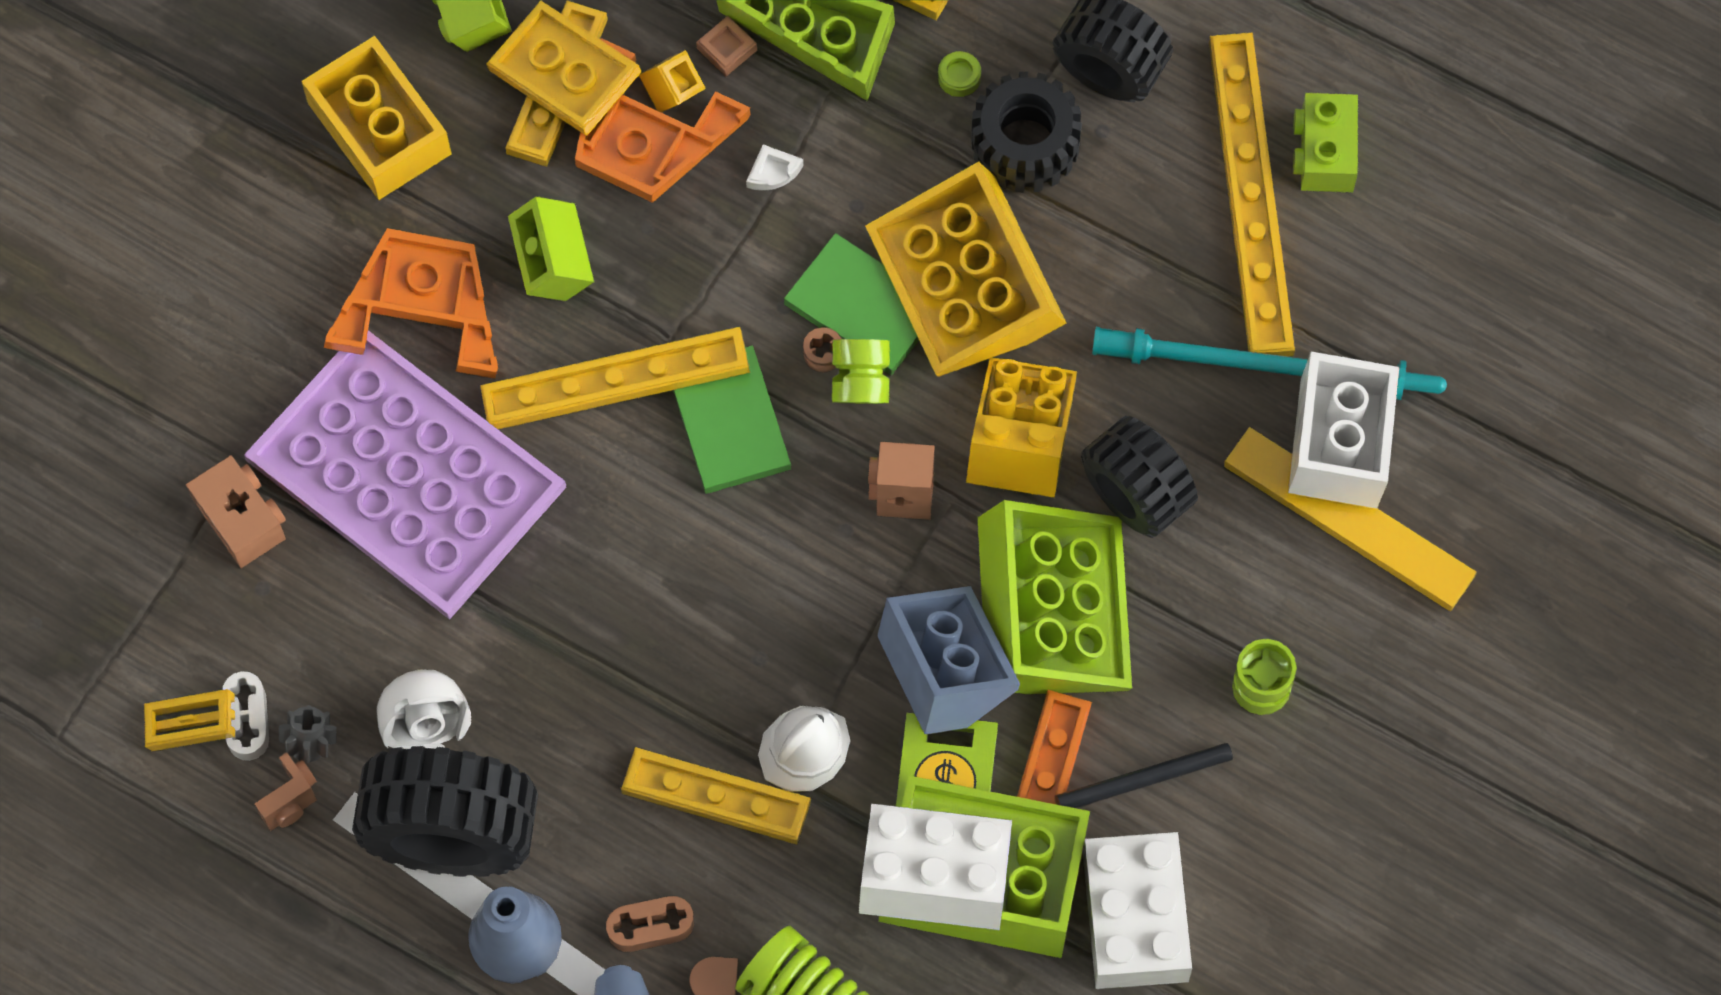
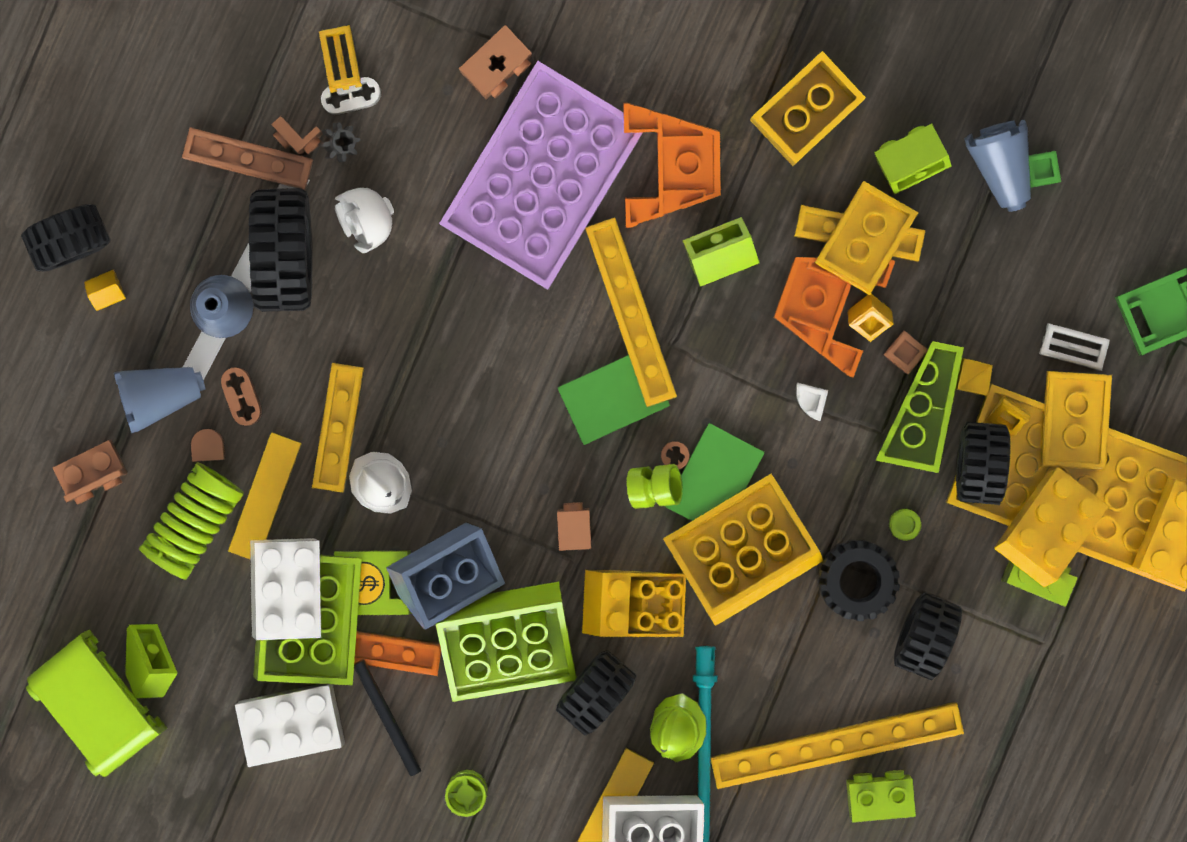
camera: 80 degrees right, 20 degrees up
(306, 873) = (247, 158): none -> nougat tile
(808, 911) = (265, 493): none -> yellow tile
(1203, 389) = (678, 727): none -> lime piece

